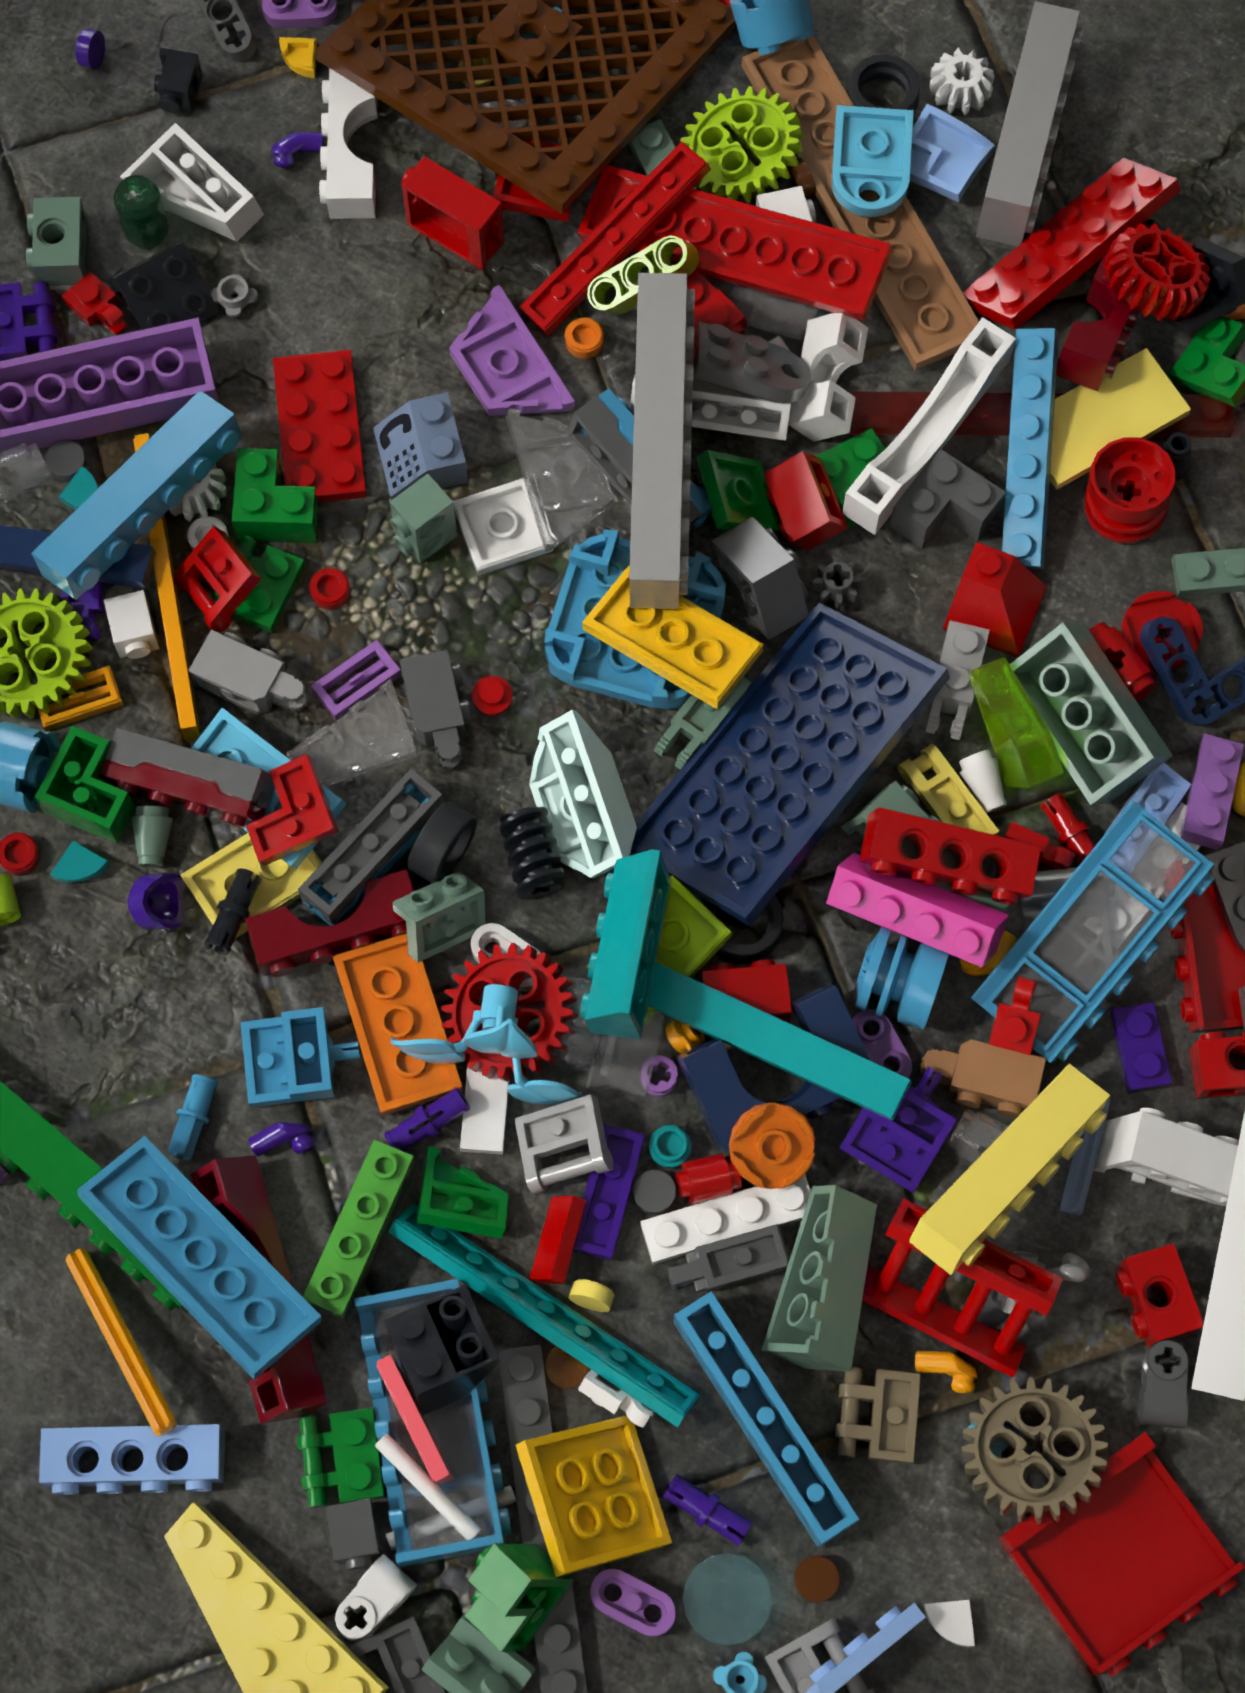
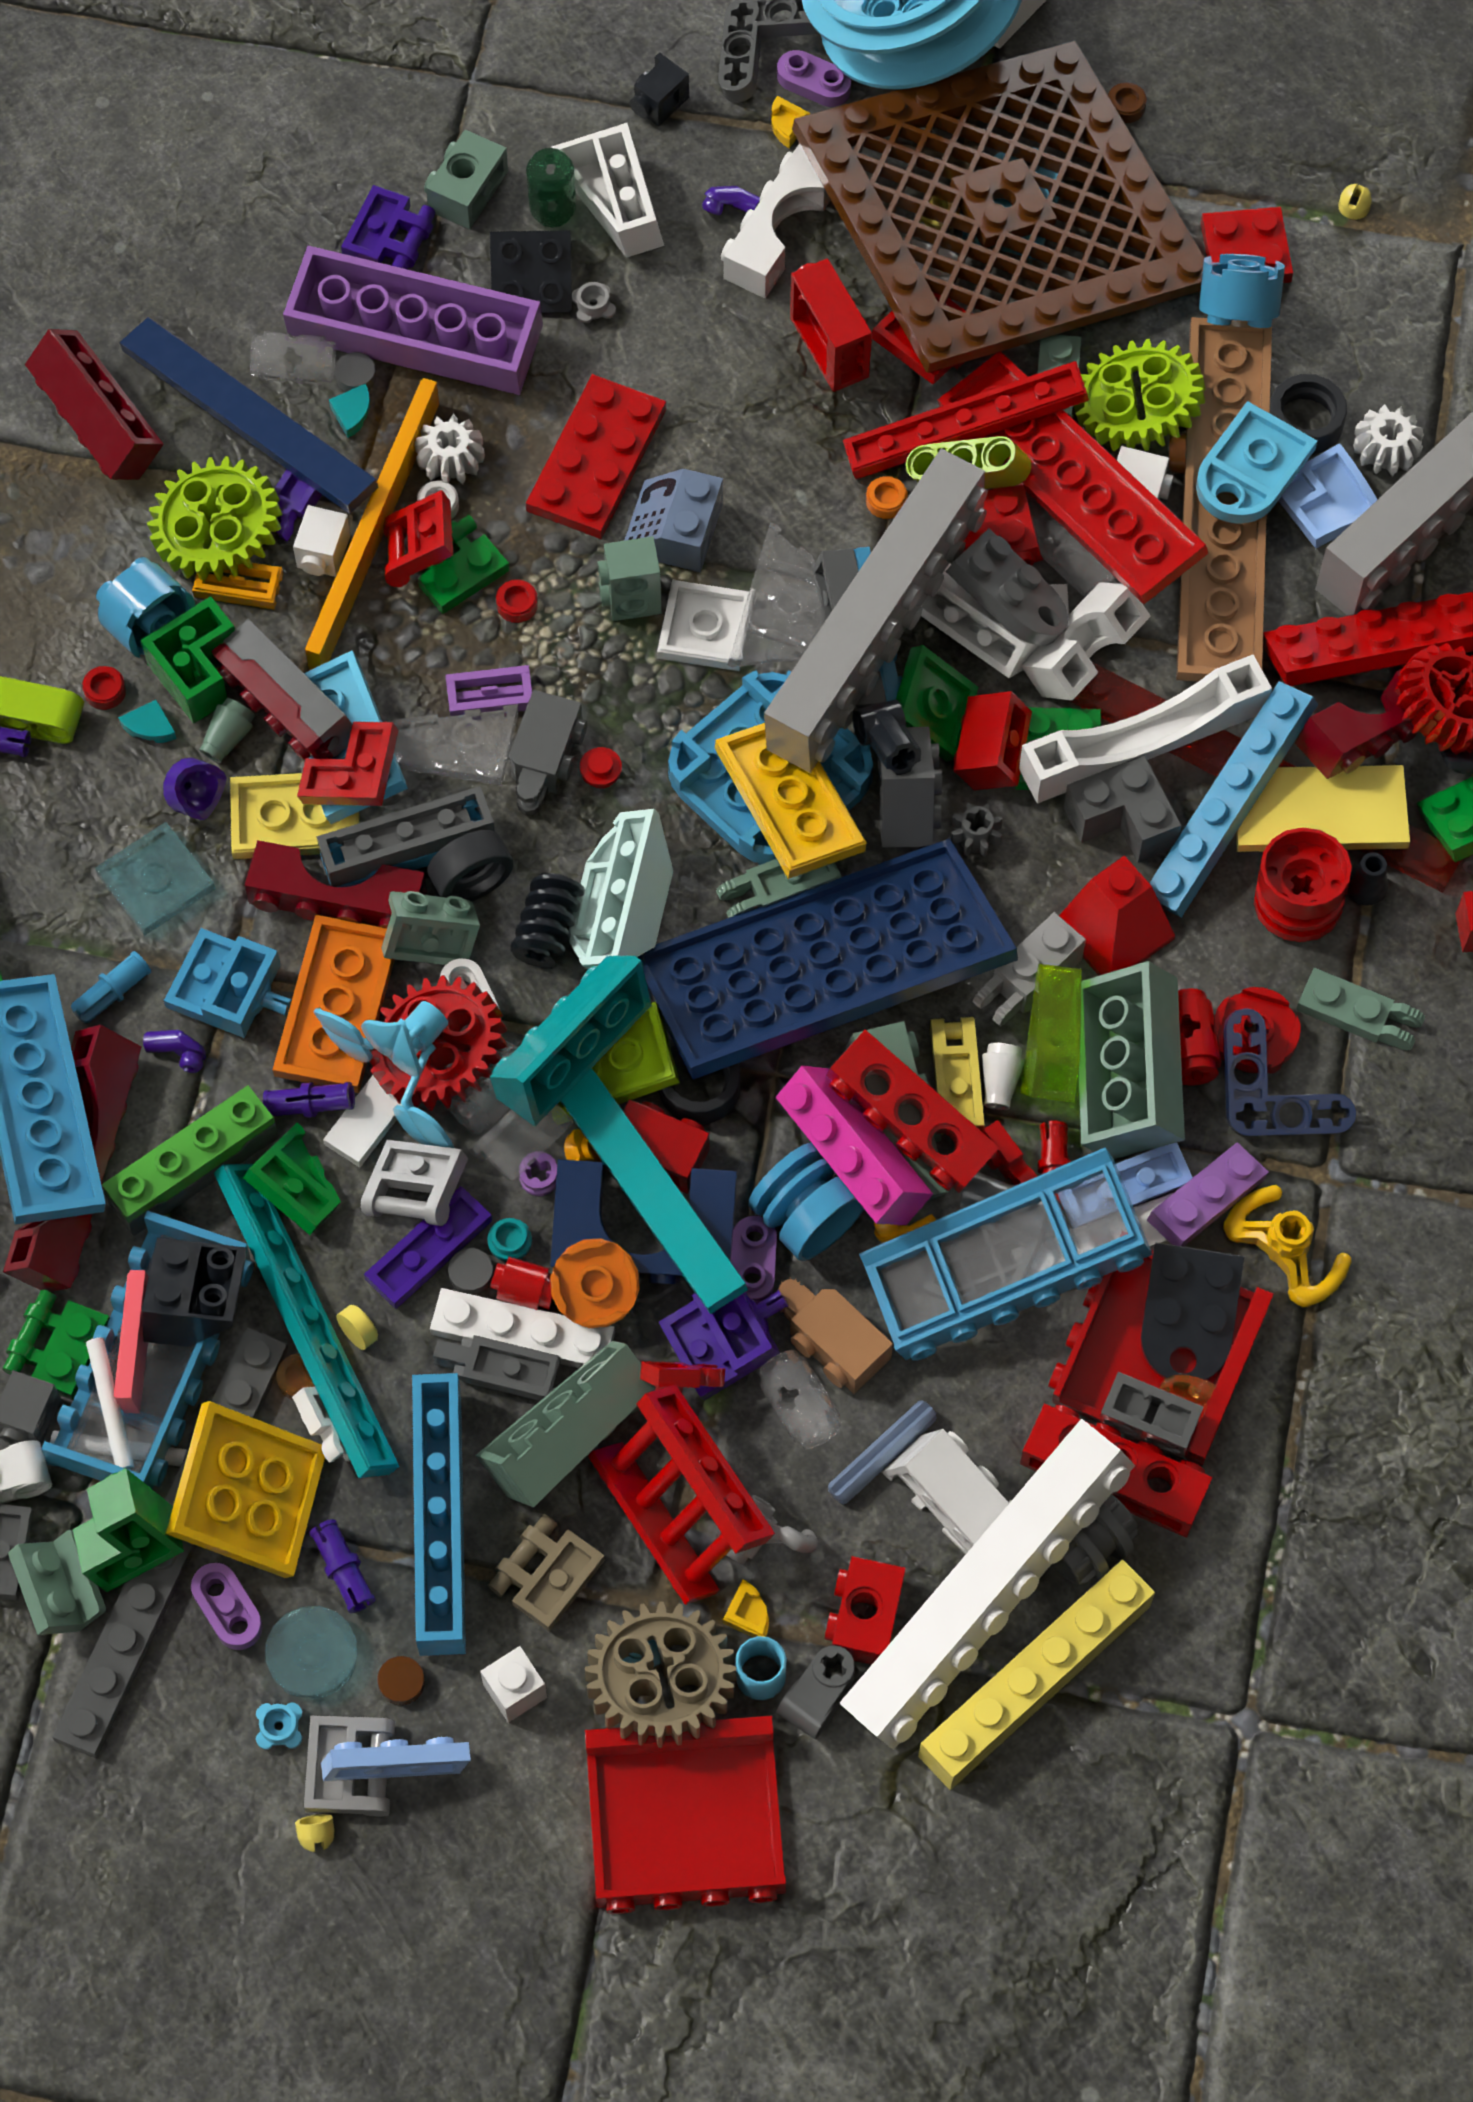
camera: 30 degrees right, 5 degrees down
(90, 48) = (600, 24): dark purple tile -> none
(94, 302) = (466, 248): red plate -> none
(137, 495) = (389, 427): dark azure brick -> none
(169, 999) = (155, 878): none -> clear light blue tile
(232, 911) = (251, 829): black pin -> none
(245, 675) = (392, 635): light grey hinge -> none
(266, 507) = (503, 496): green brick -> none
(507, 363) = (800, 482): medium lavender wing -> none
(557, 1240) = (358, 1263): red tile -> none
(726, 539) = (886, 731): none -> black piece
(891, 1187) = (681, 1374): none -> red plate
(916, 1528) = (514, 1684): none -> white brick
(949, 1364) = (638, 1564): light orange arm -> none
(952, 1621) = (498, 1785): white tile -> none
(1009, 1170) = (787, 1411): light yellow brick -> none
(1016, 1024) = (882, 1296): red plate -> none
(1062, 1351) = (748, 1612): none -> yellow tile
(1120, 1379) = (766, 1647): none -> medium azure piece
(1140, 1048) = (995, 1389): dark purple plate -> none

